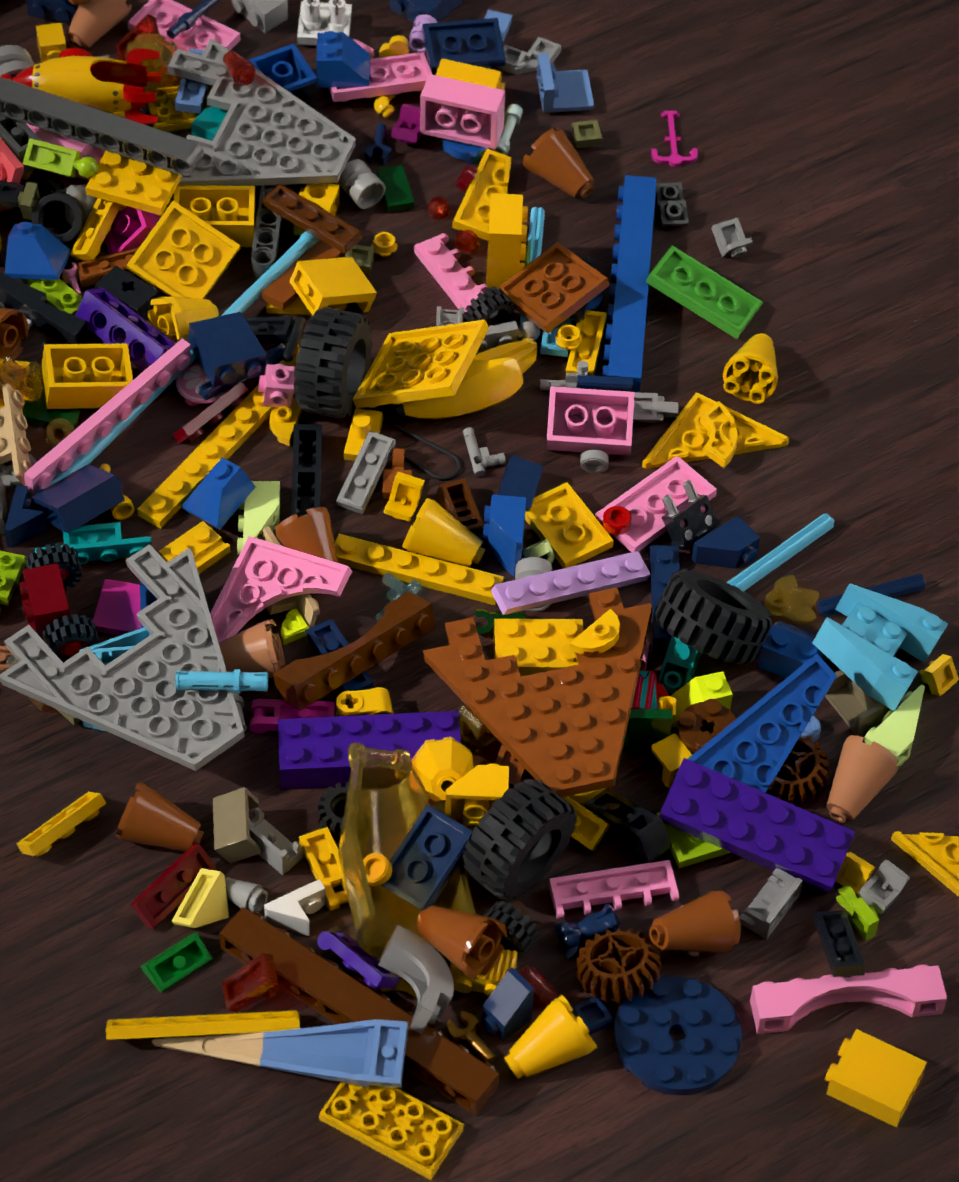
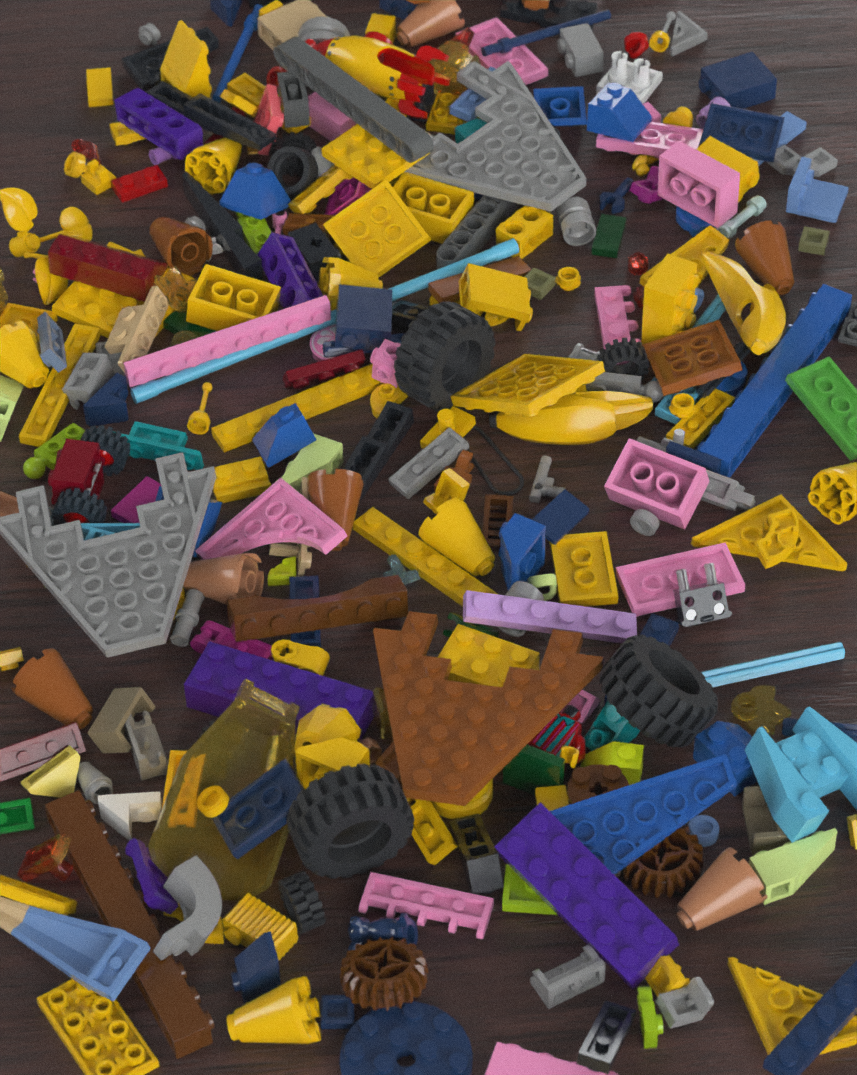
camera: 30 degrees right, 5 degrees down
(28, 199) = (272, 144): olive plate -> none
(59, 159) = (312, 119): lime plate -> none
(79, 497) = (163, 400): dark blue brick -> none
(228, 681) = (179, 590): medium azure pin -> none
(240, 69) = (515, 91): clear red cone -> none
(312, 218) = (508, 234): reddish brown tile -> none
(463, 938) = (247, 892): dark orange cone -> none
(466, 177) = (676, 243): dark red tile -> none
(469, 1035) = (214, 983): pearl gold bar -> none
(543, 991) = (298, 961): clear red cone -> none
(572, 217) = (736, 289): none -> yellow piece
(599, 635) = (531, 667): yellow plate -> none
(617, 520) = (630, 579): red tile -> none
(699, 926) = (473, 965): dark orange cone -> none
(727, 545) = (724, 638): dark blue slope -> none

